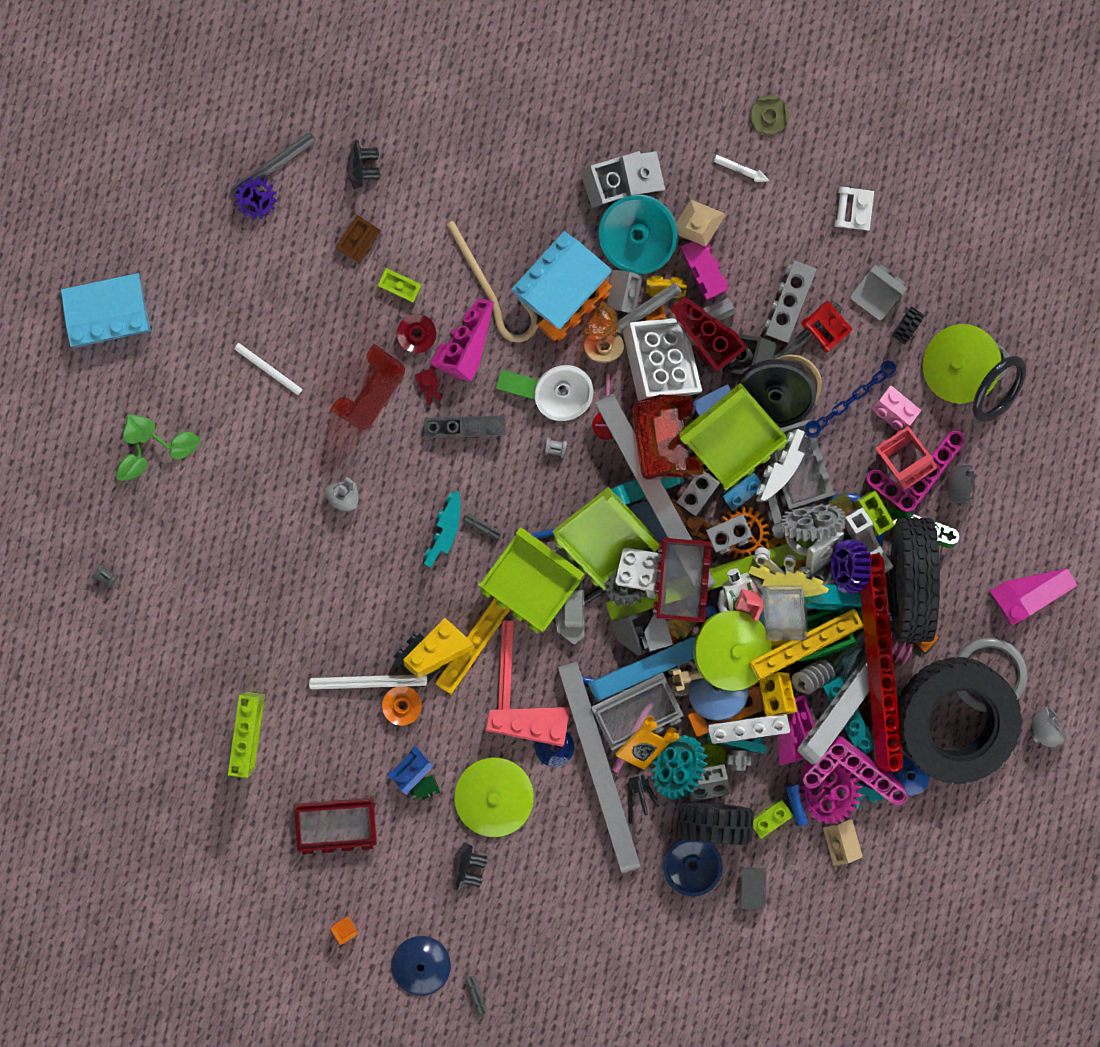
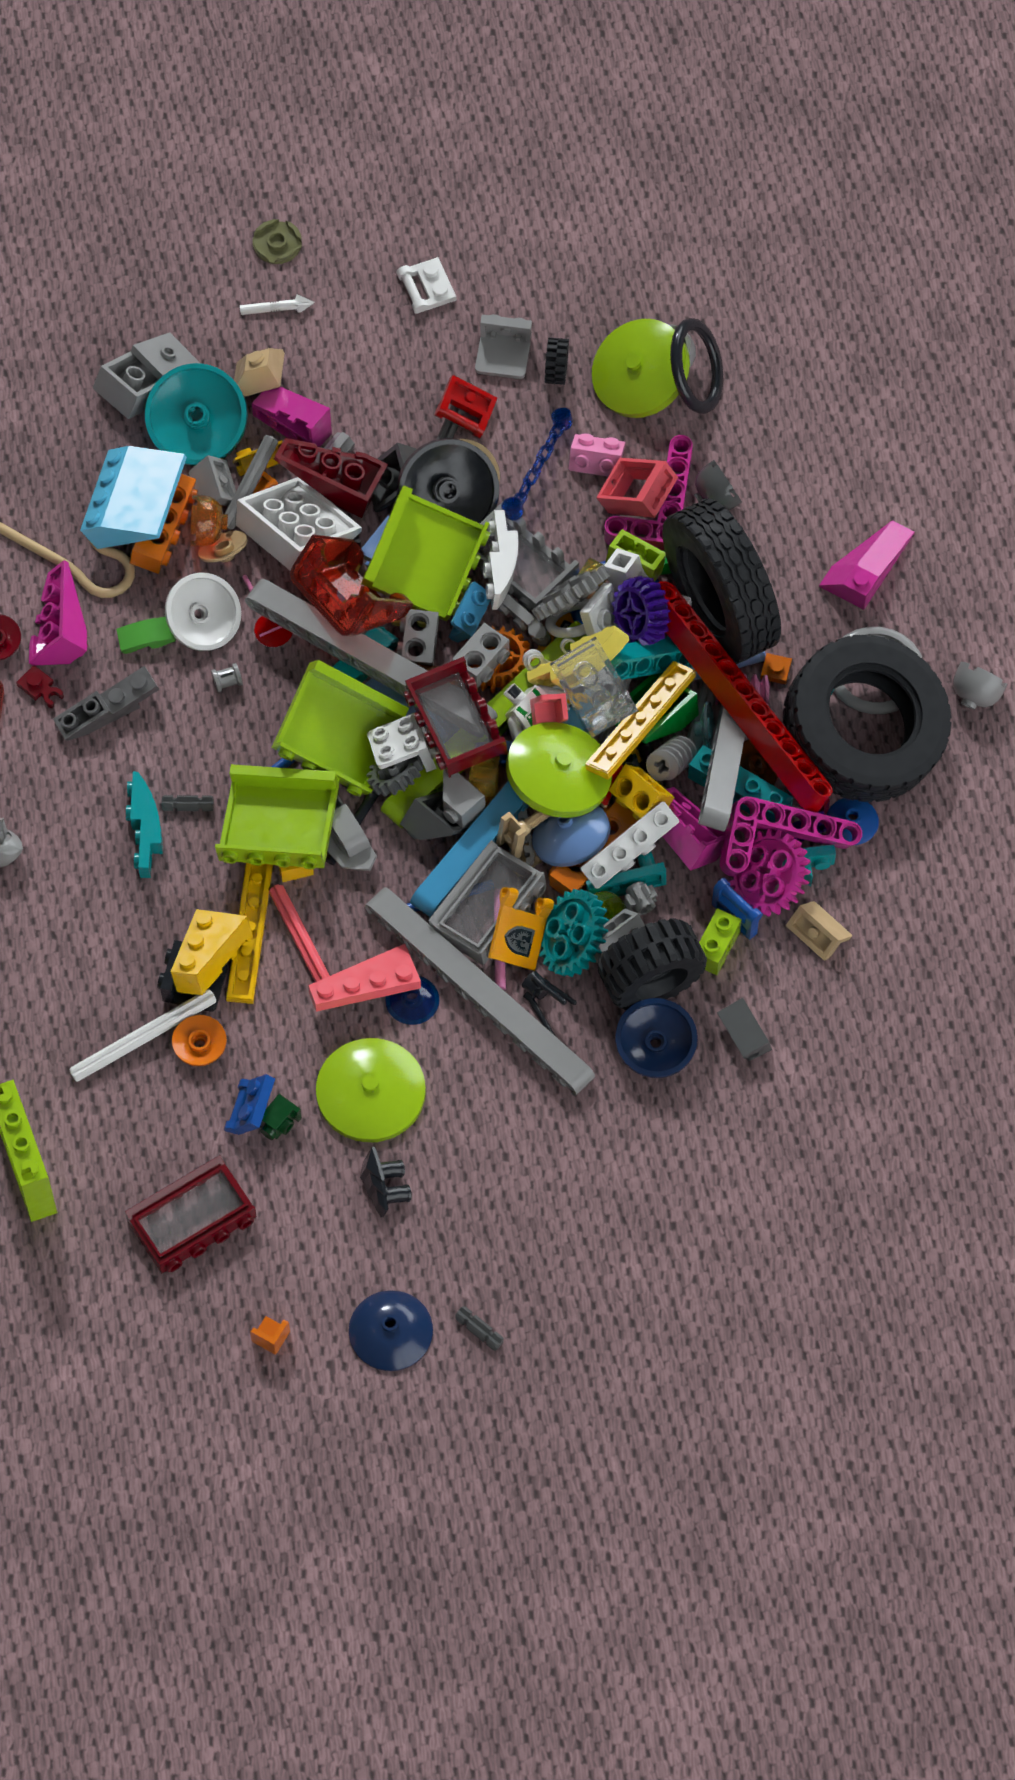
camera: 30 degrees left, 25 degrees down
(805, 275) = (408, 370): light grey brick -> none

